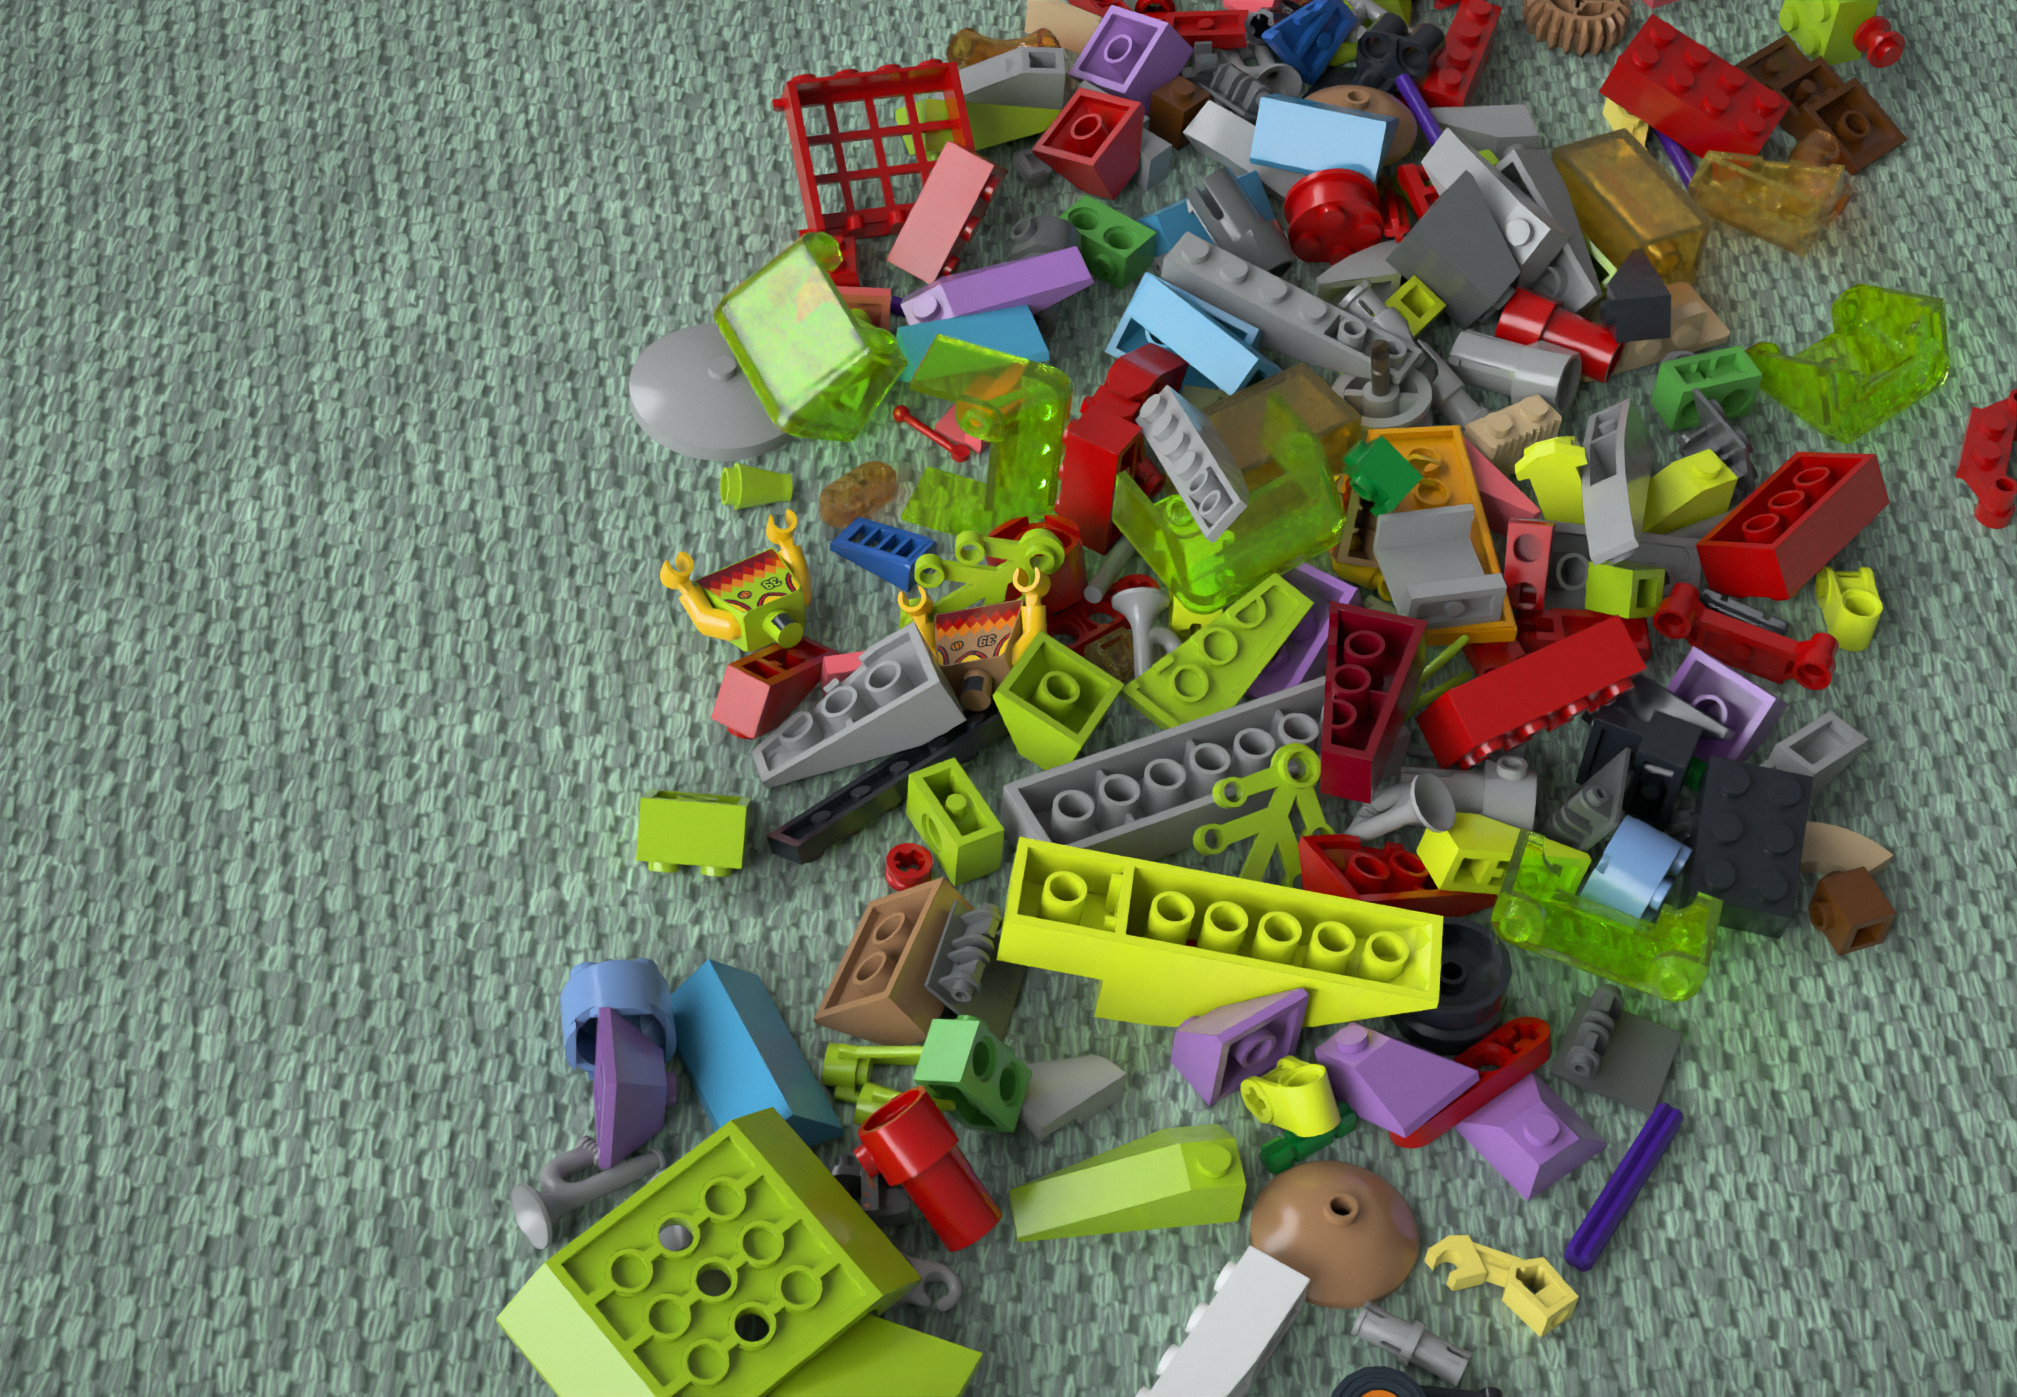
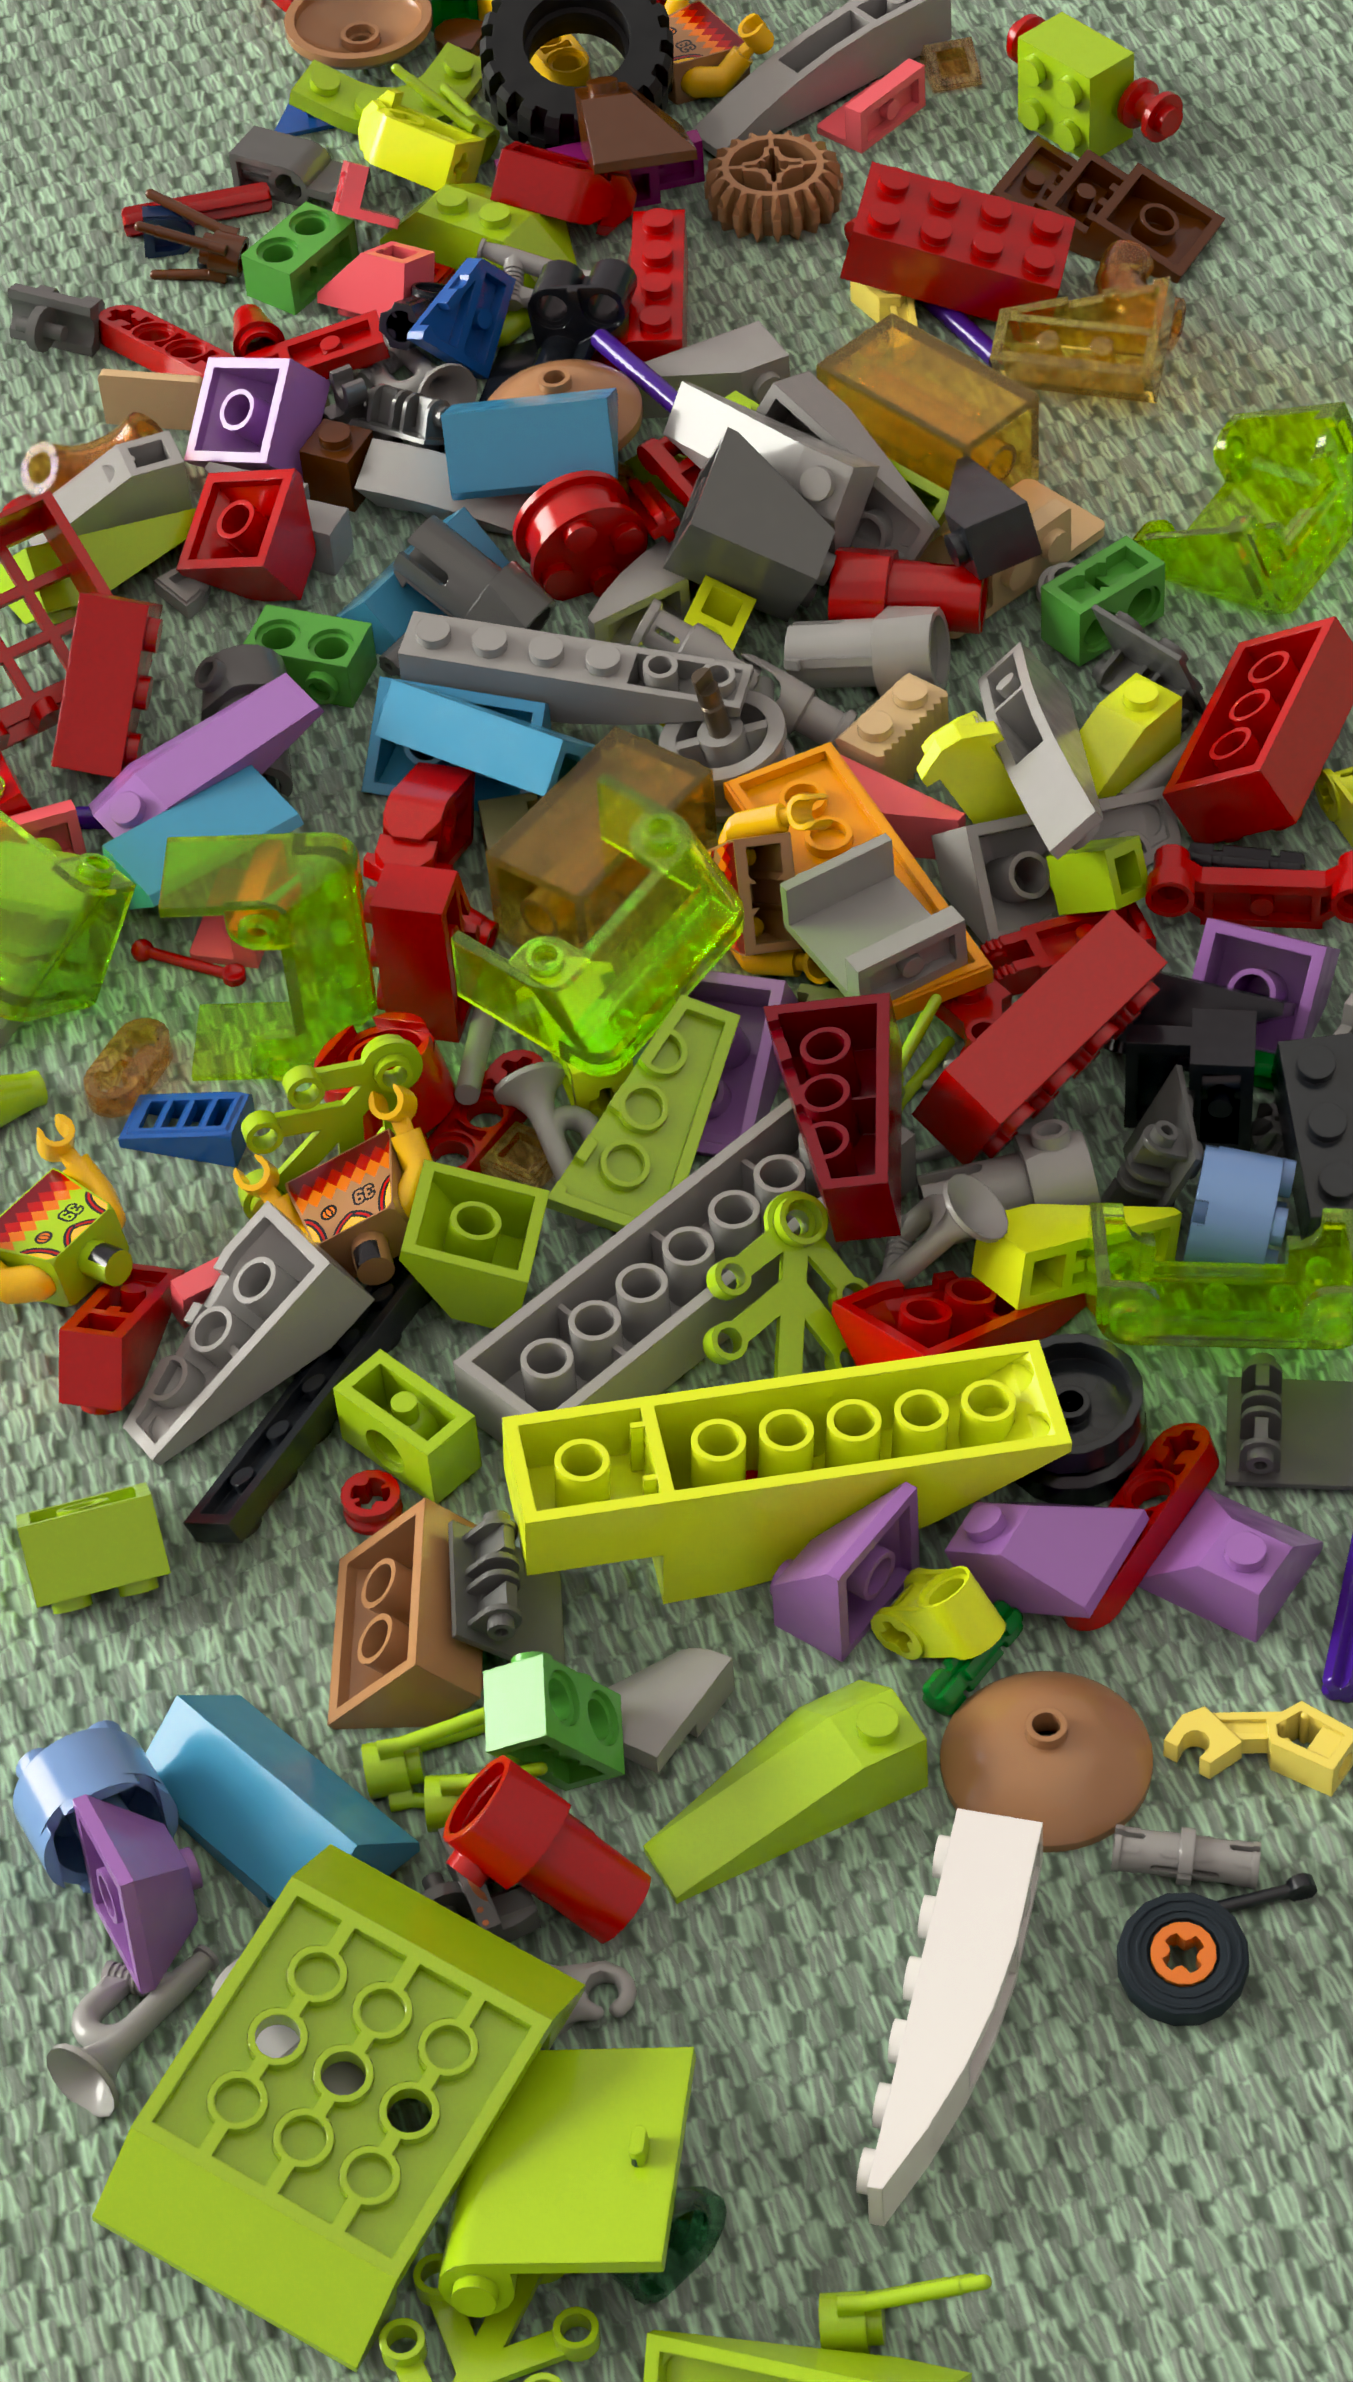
camera: 10 degrees left, 0 degrees up
(1195, 461) = (541, 891): light grey slope -> none
(1379, 474) = (764, 833): green brick -> none
(1528, 563) = (976, 881): red leg -> none

